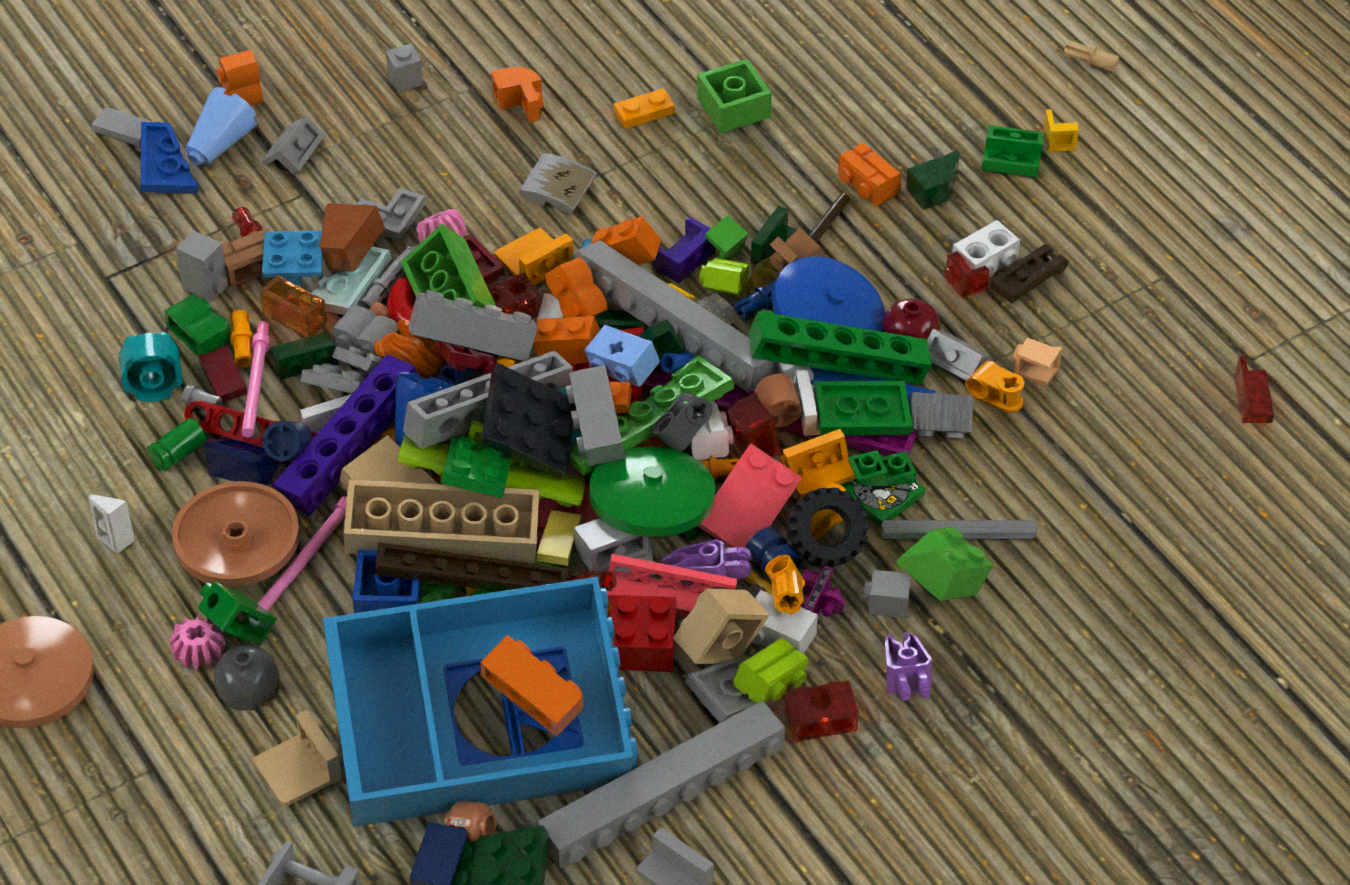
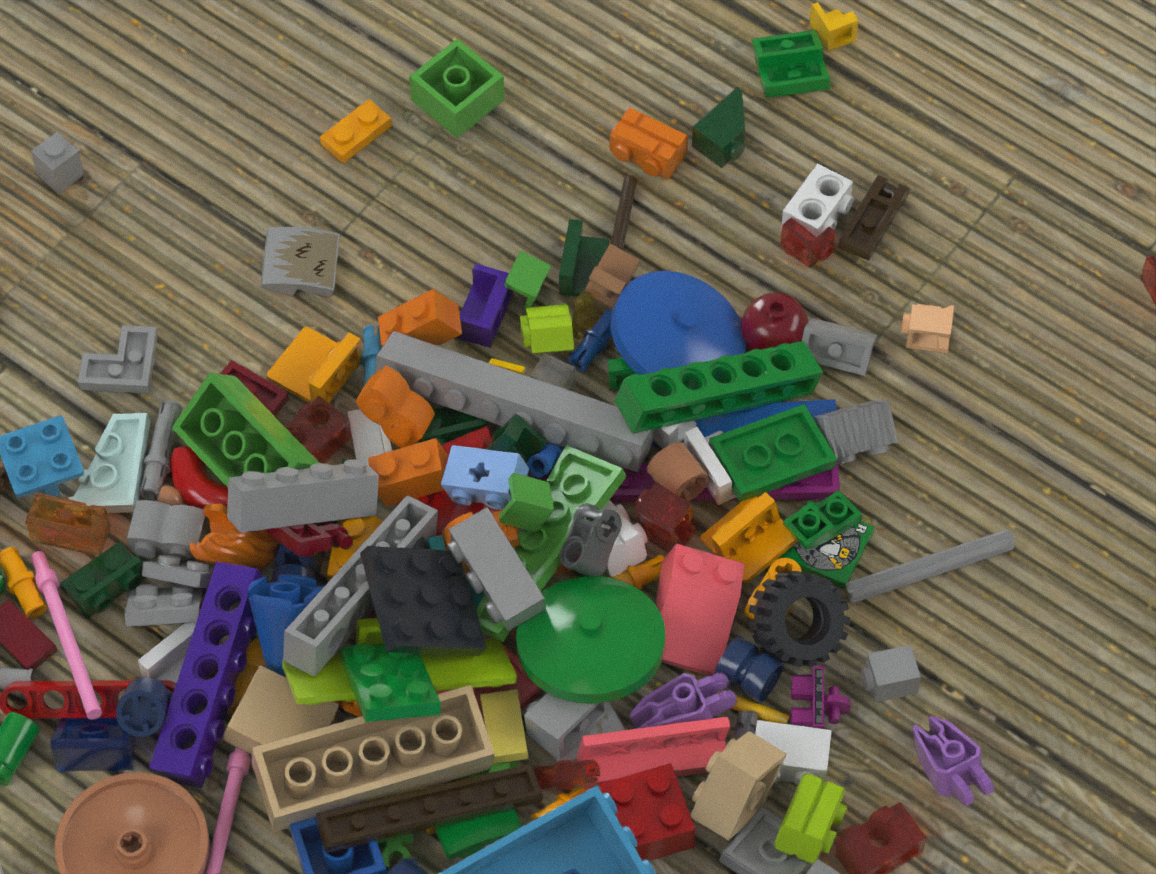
camera: 20 degrees left, 10 degrees up
(349, 234) = (92, 408): dark orange slope -> none
(449, 218) = (193, 366): bright pink gear -> none
(518, 87) = (203, 147): orange brick -> none
(642, 379) = (529, 504): none -> bright green panel
(786, 584) = (786, 707): light orange piece -> none
(946, 564) = (942, 620): bright green slope -> none
(995, 385) = (897, 371): light orange piece -> none

